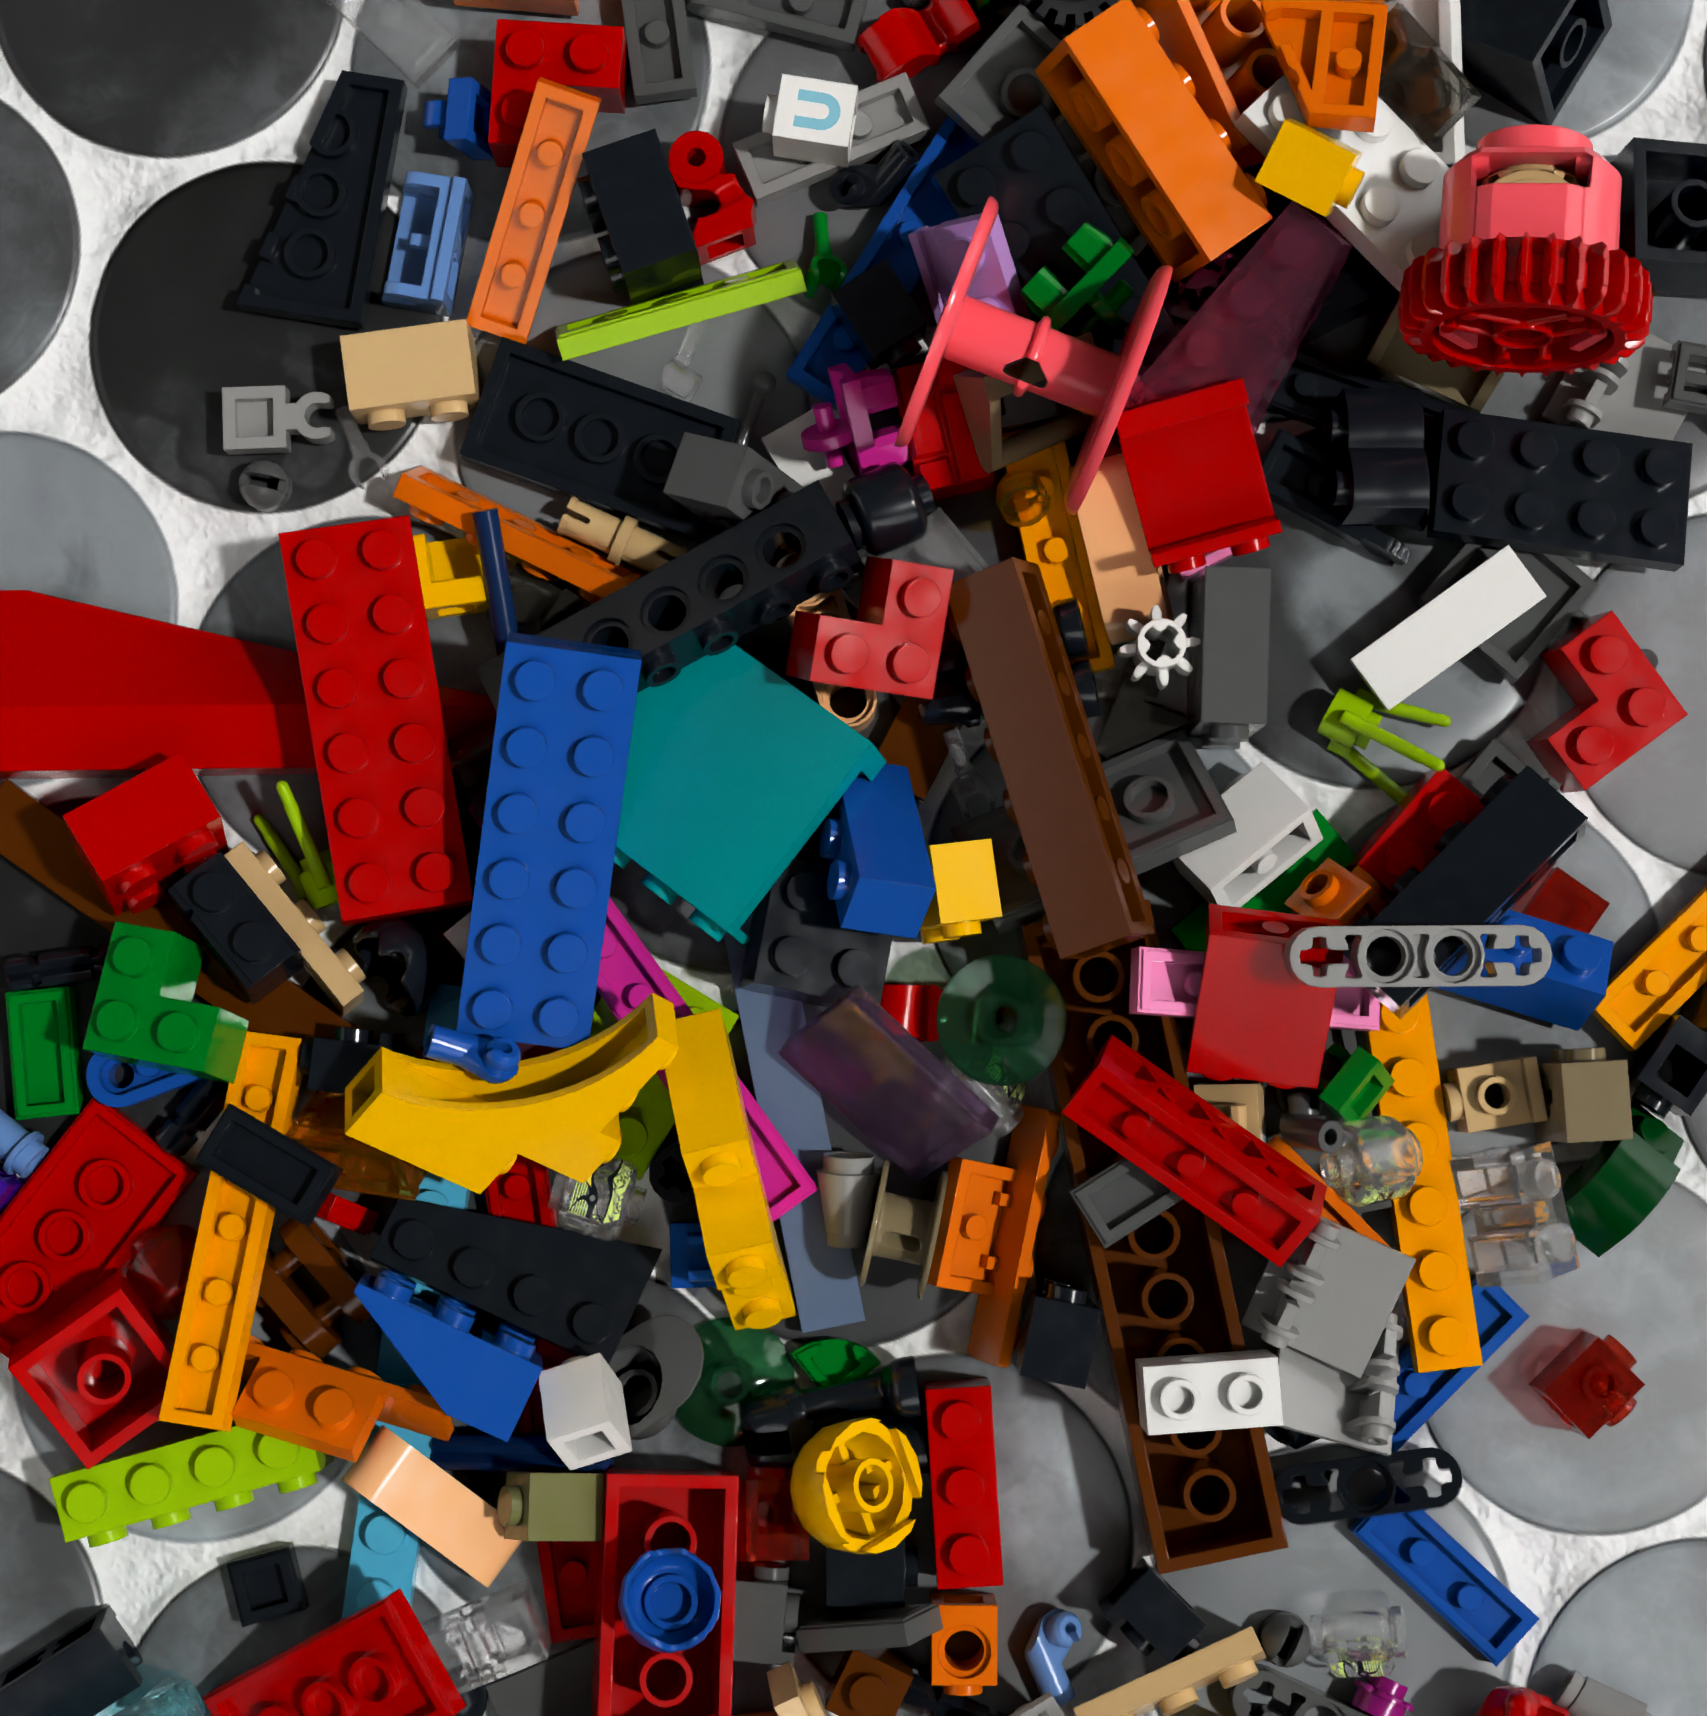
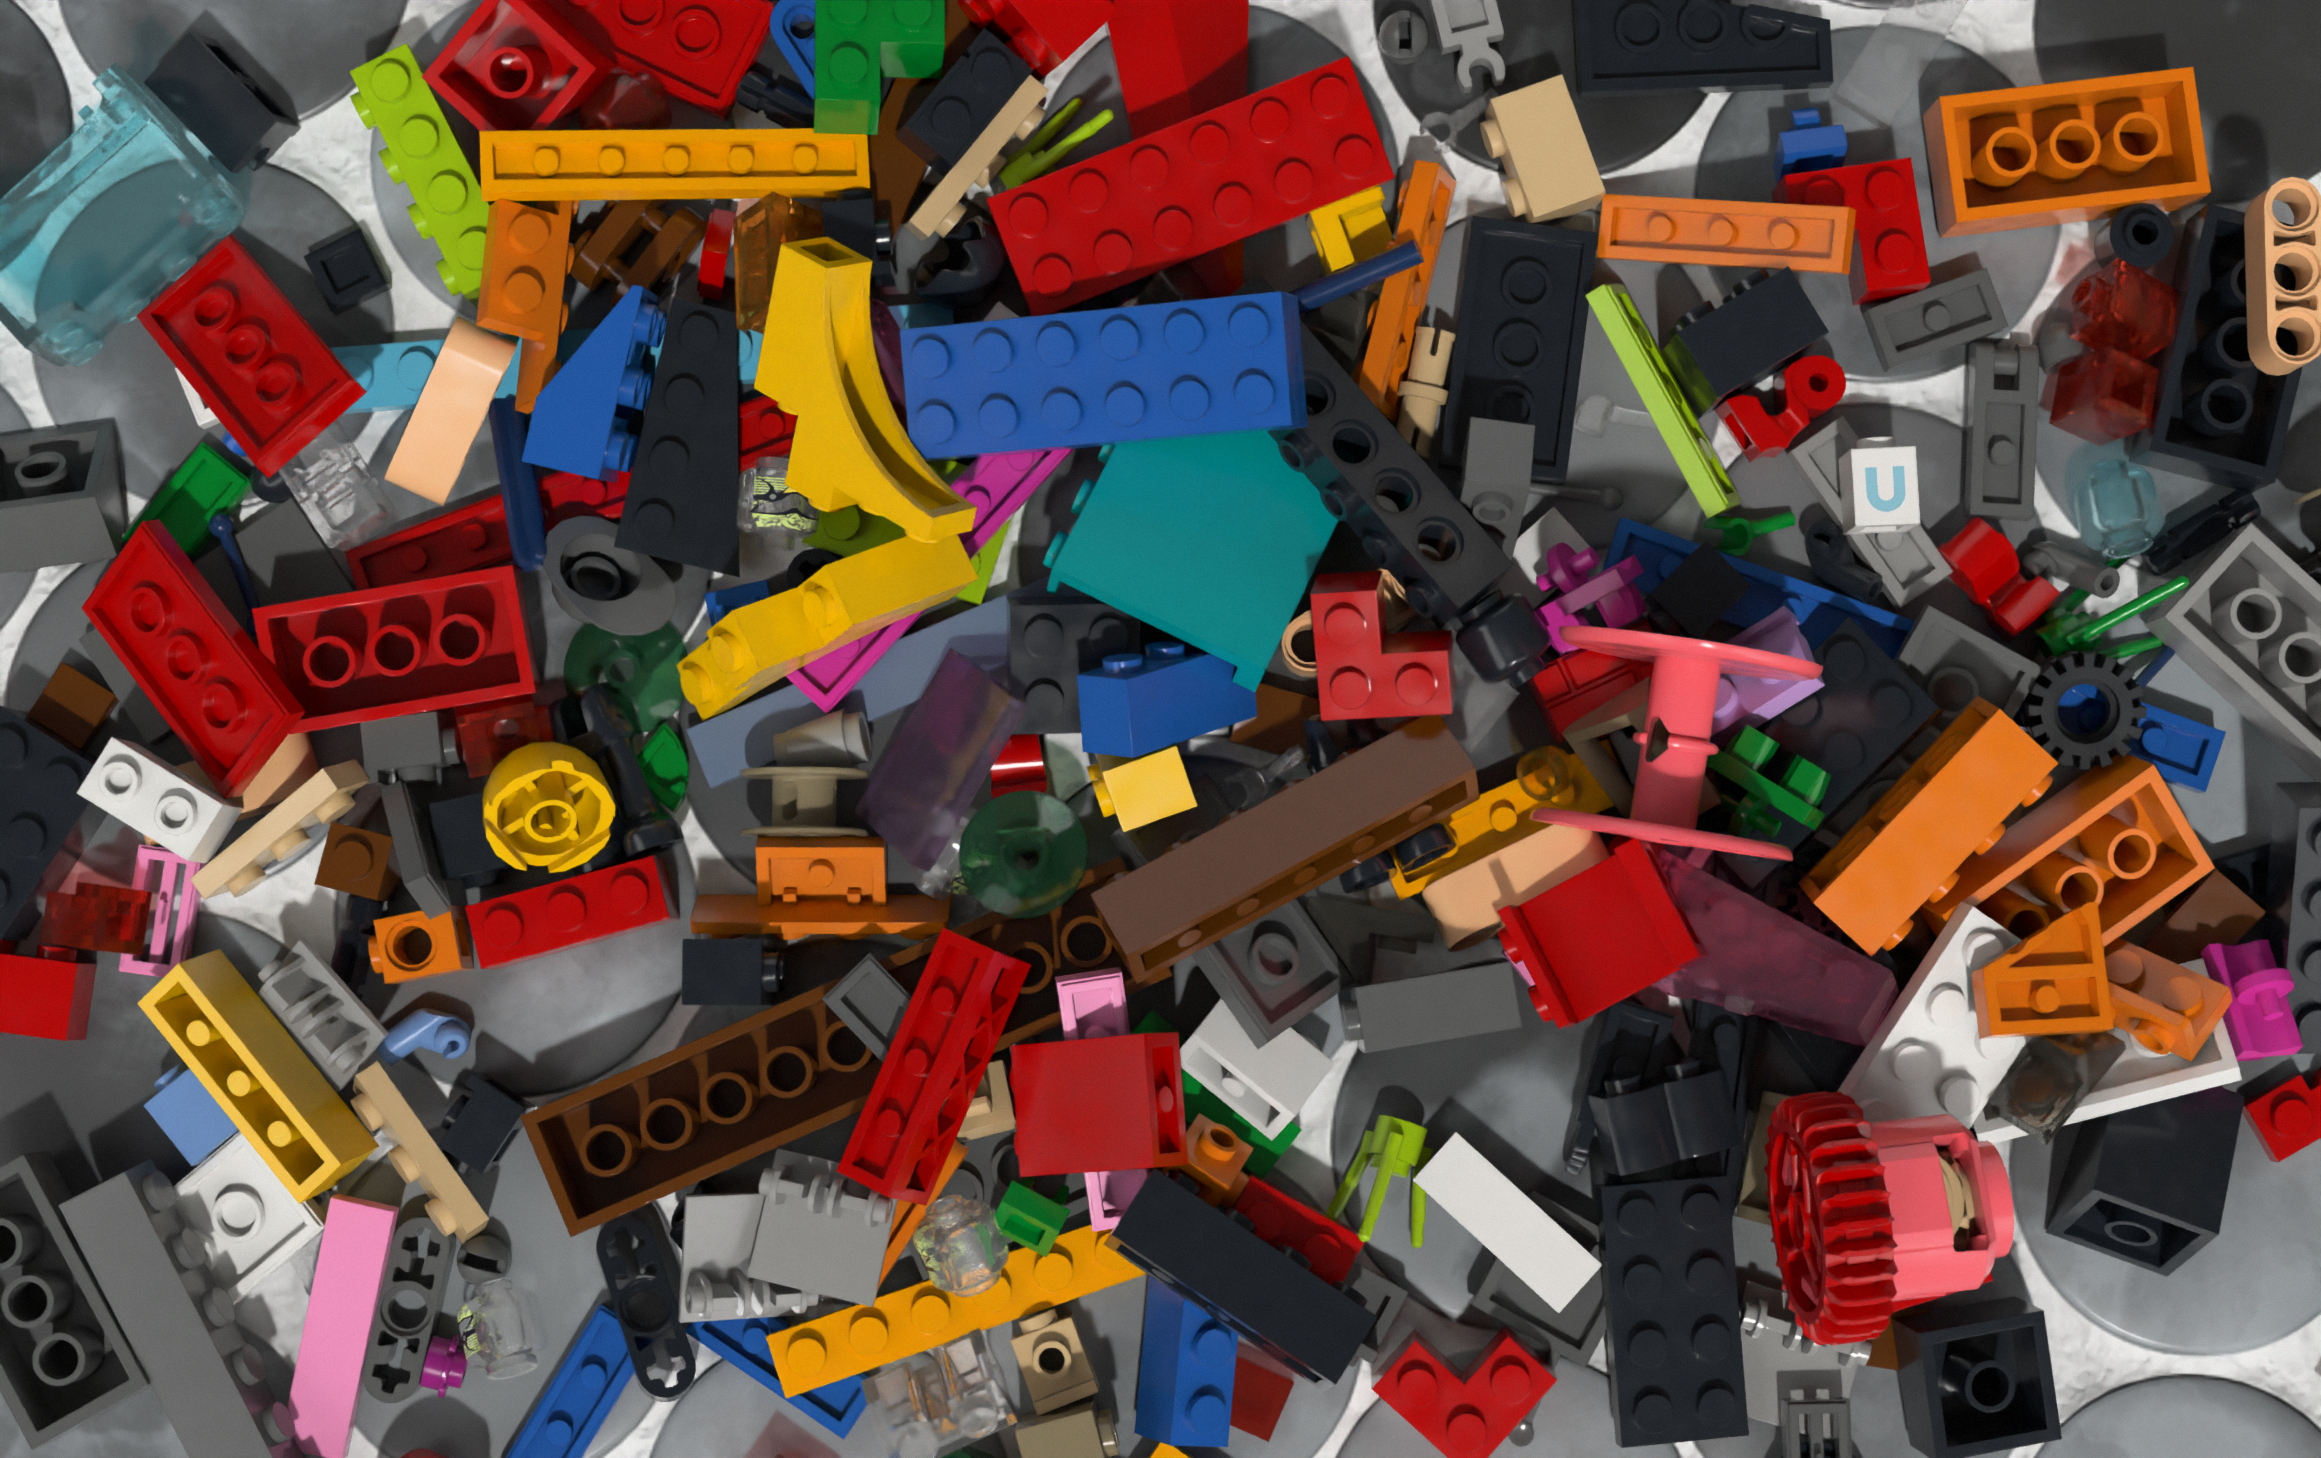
camera: 80 degrees right, 0 degrees up
(269, 1165) = (741, 182): black tile -> none
(429, 243) = (1676, 143): medium blue hinge -> none
(489, 1059) = (881, 365): blue arm -> none
(552, 1506) = (471, 521): olive brick -> none
(584, 1411) = (567, 531): white brick -> none
(669, 1600) = (403, 646): blue hair -> none
(1153, 630) = (1439, 928): white gear -> none
(1208, 1392) = (702, 1124): white brick -> none
(1306, 1126) = (984, 1176): dark grey arm -> none
(1311, 168) = (1927, 982): yellow brick -> none
(1417, 959) = (1168, 1238): light grey beam -> none

